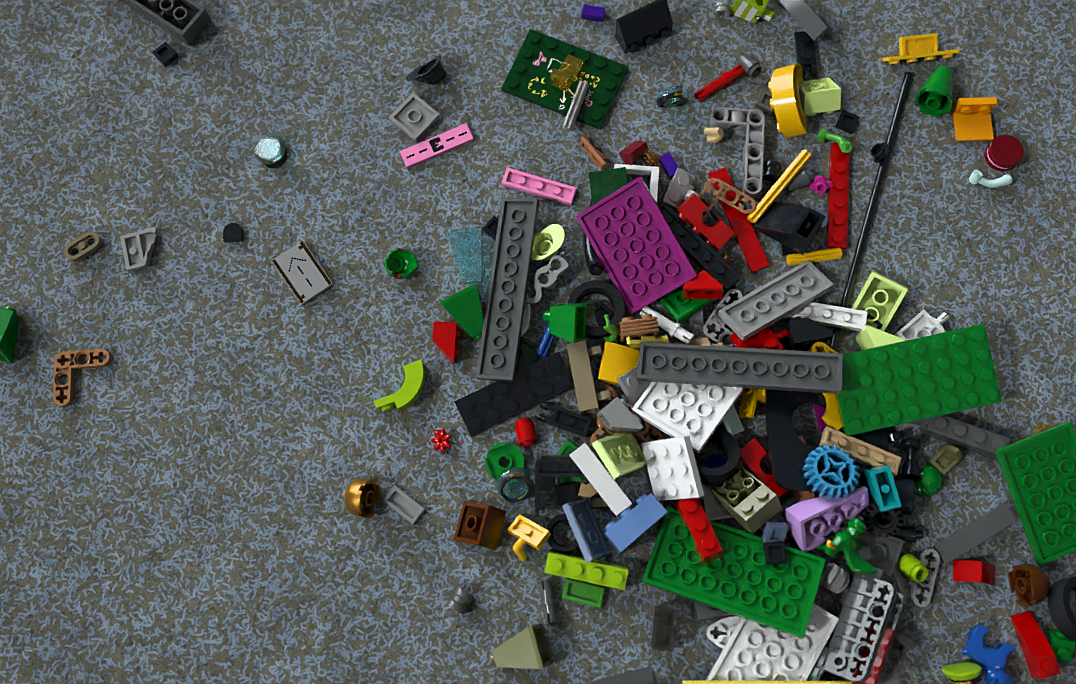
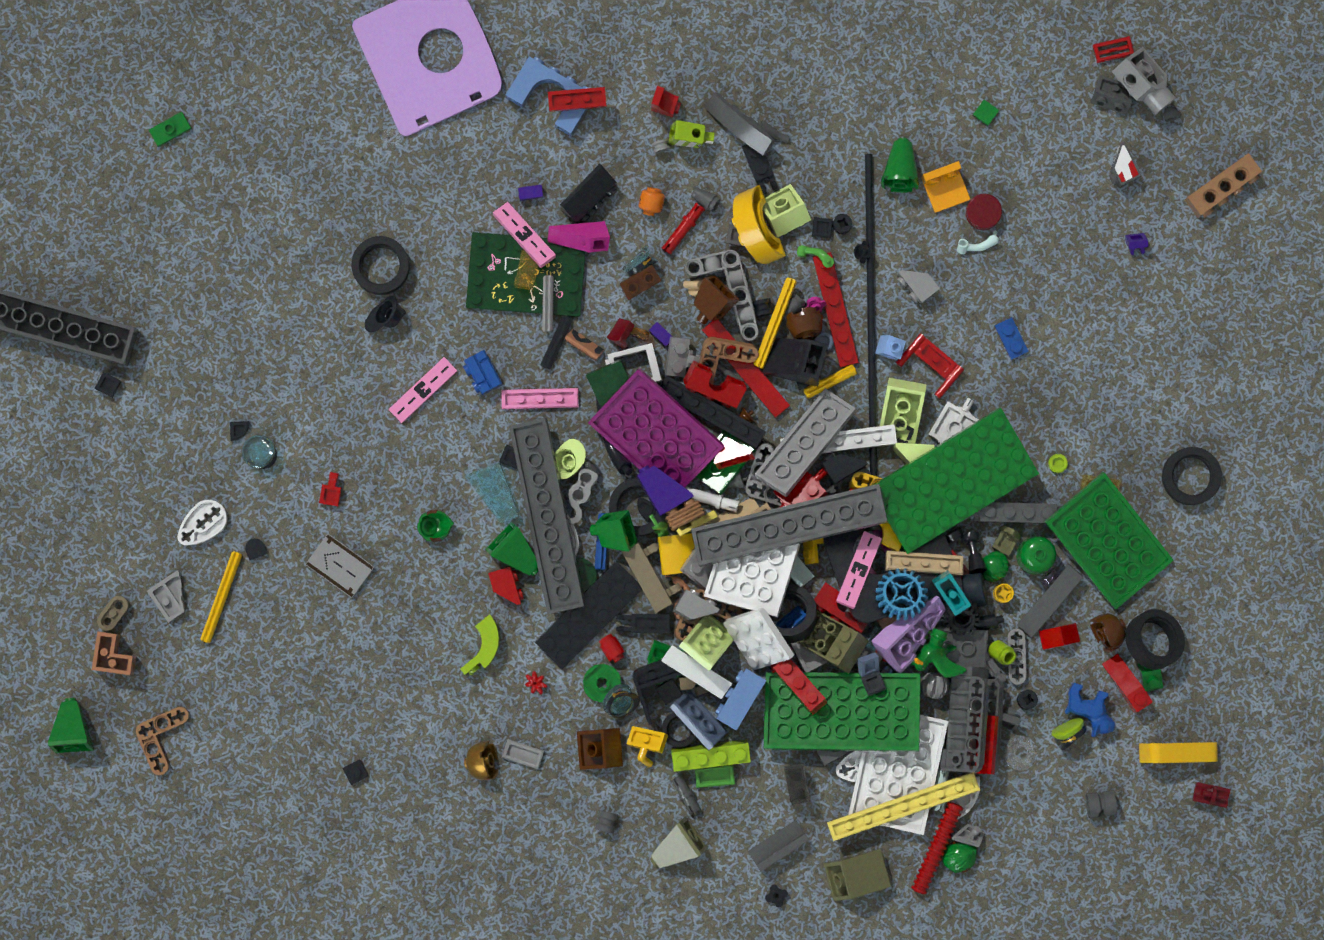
camera: 25 degrees left, 10 degrees up
(59, 281) = (107, 657): none -> nougat brick
(184, 265) = (221, 597): none -> yellow axle
(195, 185) = (211, 529): none -> white piece
(239, 466) = (355, 772): none -> black plate
(261, 127) = (238, 429): none -> black tile
(320, 206) = (330, 493): none -> red plate
(414, 117) = (389, 368): light grey plate -> none
(432, 12) = (380, 242): none -> black tyre
(496, 146) = (482, 372): none -> blue brick
(571, 143) = (556, 342): none -> black axle
(575, 43) = (524, 235): none -> bright pink tile
(624, 57) = (581, 236): none -> dark pink slope
(625, 297) = (662, 490): none -> dark purple slope
(665, 111) = (640, 282): none -> reddish brown bracket
(699, 50) = (651, 201): none -> orange head
(728, 148) = (713, 300): none -> reddish brown torso
(793, 435) = (858, 570): none -> bright pink tile
(808, 192) = (805, 323): none -> reddish brown cone
(867, 127) = (844, 224): none -> black wheel
(882, 242) = (890, 347): none -> light blue brick
(919, 46) = (871, 124): yellow bracket -> none
(920, 628) = (1024, 701): none -> black wheel
(921, 268) = (935, 360): none -> red plate
(925, 196) = (919, 284): none -> light grey slope
(933, 509) = (1005, 595): none -> yellow wheel
(974, 482) = (1036, 555): none -> green cylinder
(979, 509) = (1048, 577): none -> tile
(999, 273) = (1011, 338): none -> blue plate
(1015, 403) = (1057, 463): none -> lime tile
(1027, 71) = (985, 112): none -> green tile

